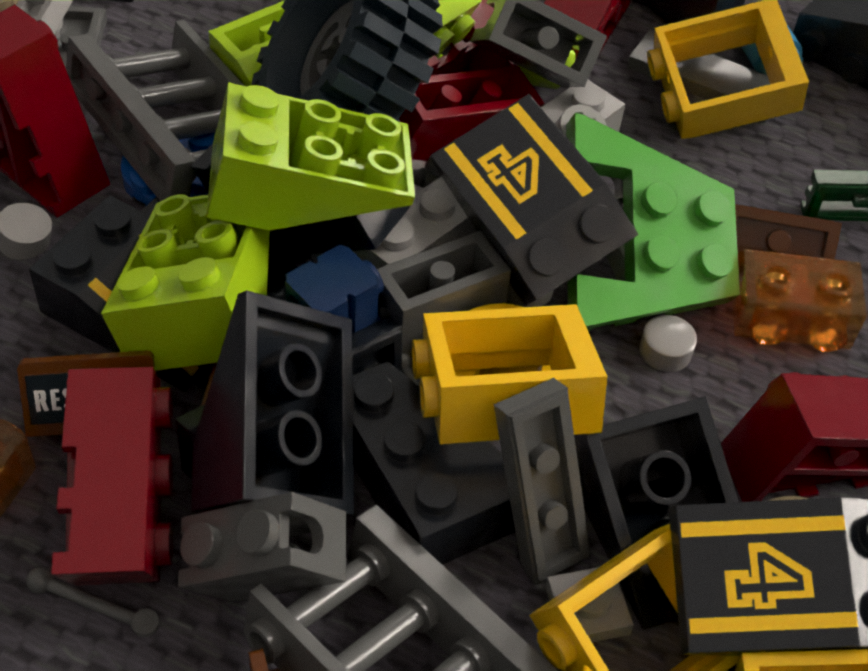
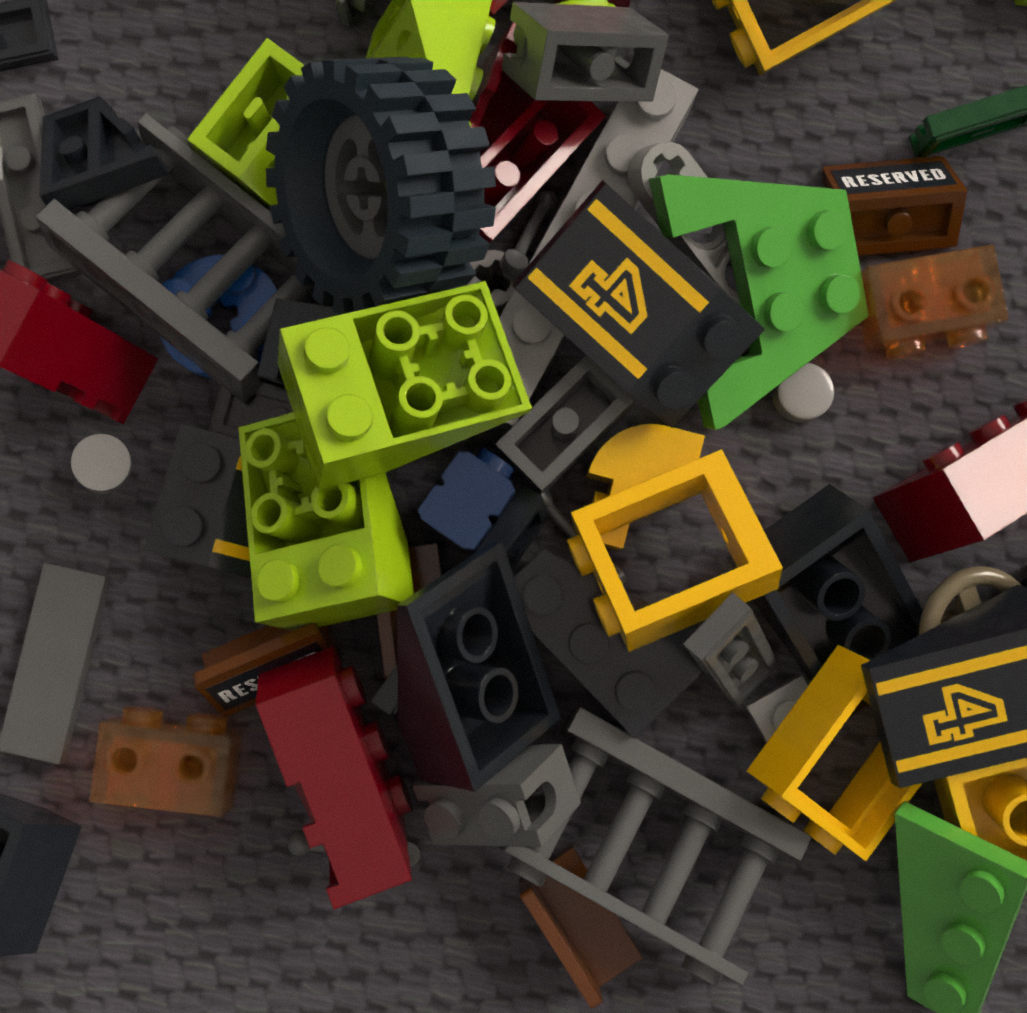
camera: 15 degrees left, 35 degrees up
(135, 36) = (92, 155): none -> black wing

